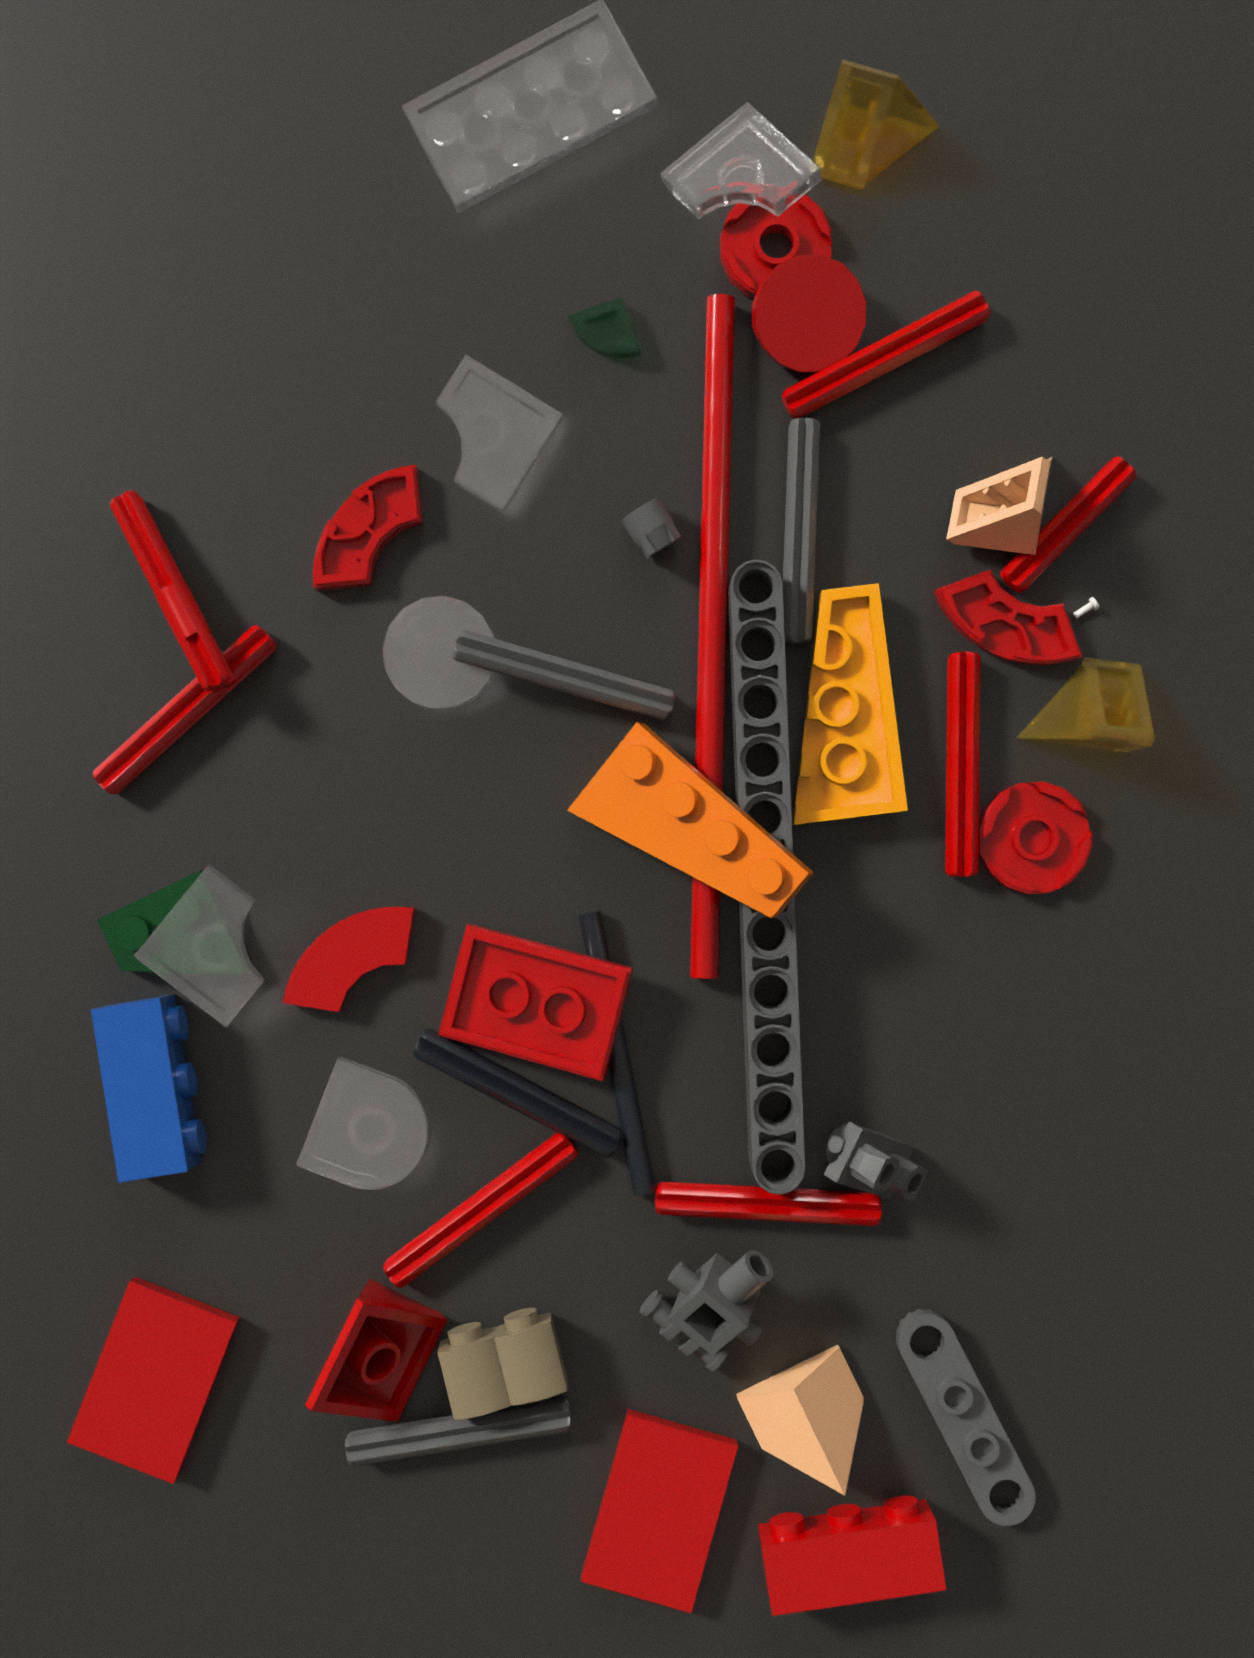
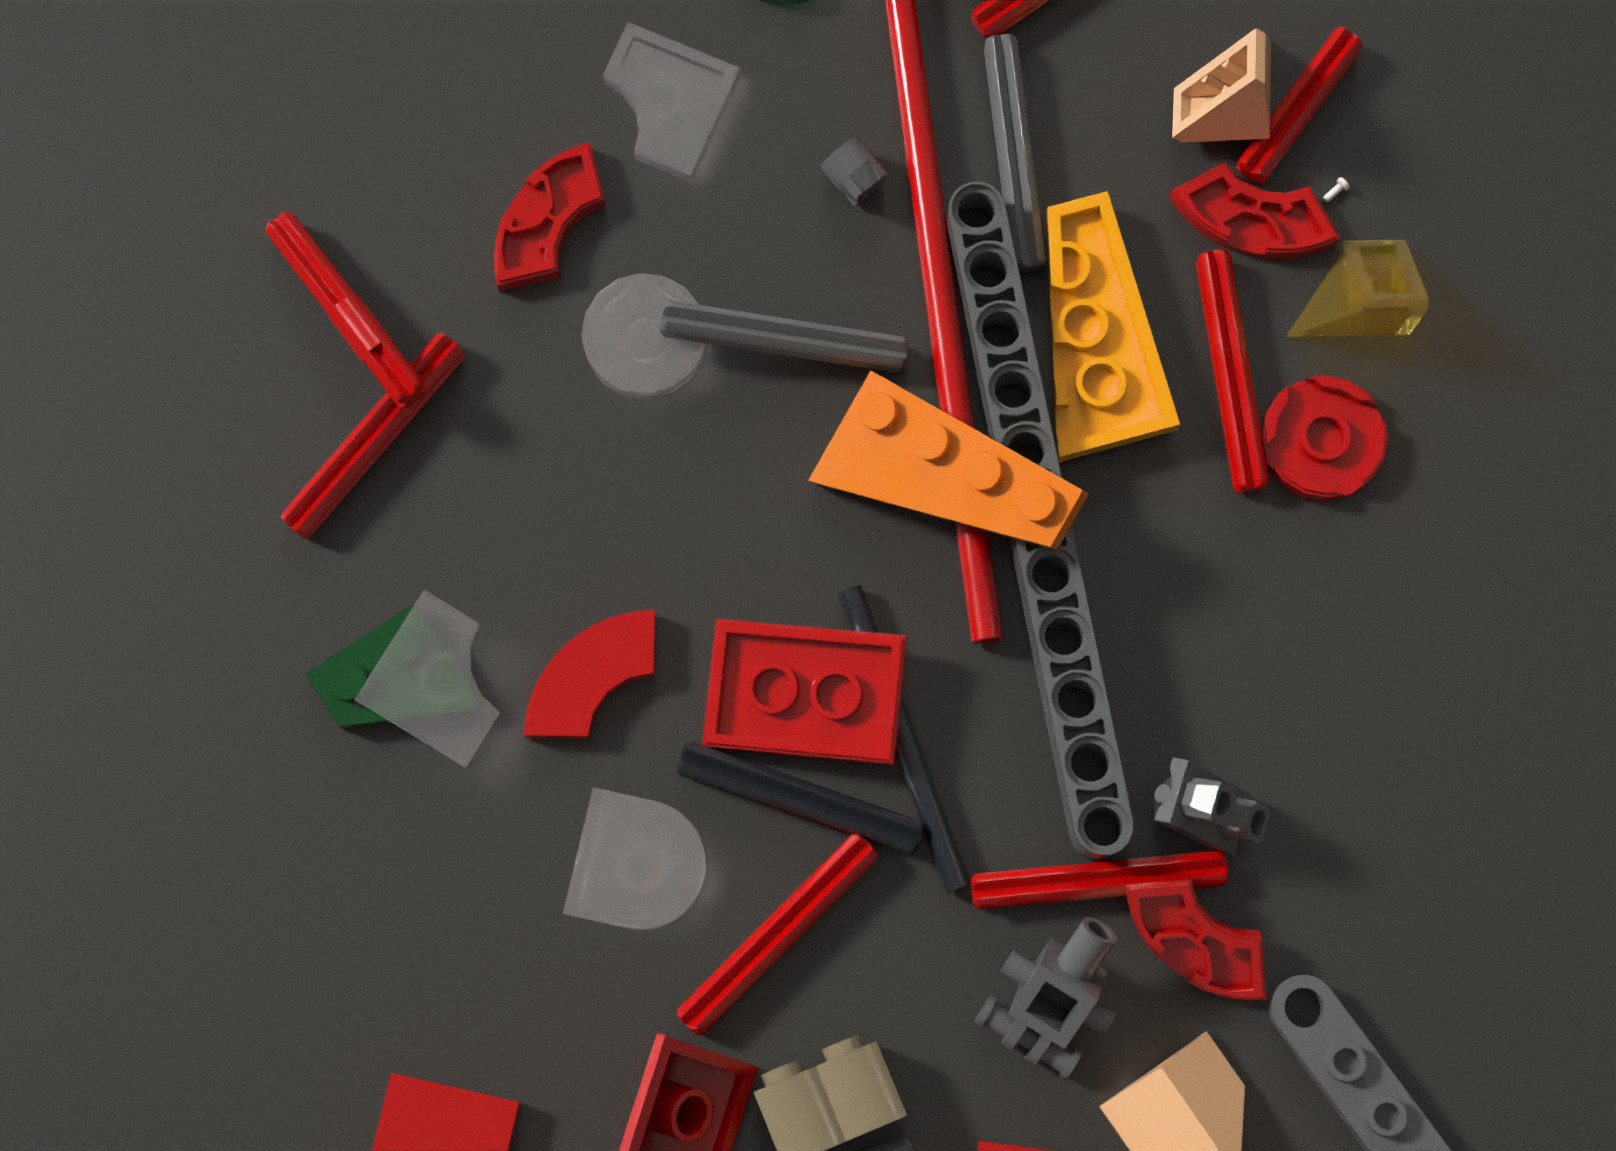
camera: 10 degrees left, 10 degrees down
(148, 1087) = (387, 847): blue brick -> none
(842, 1272) = (1194, 942): none -> red tile

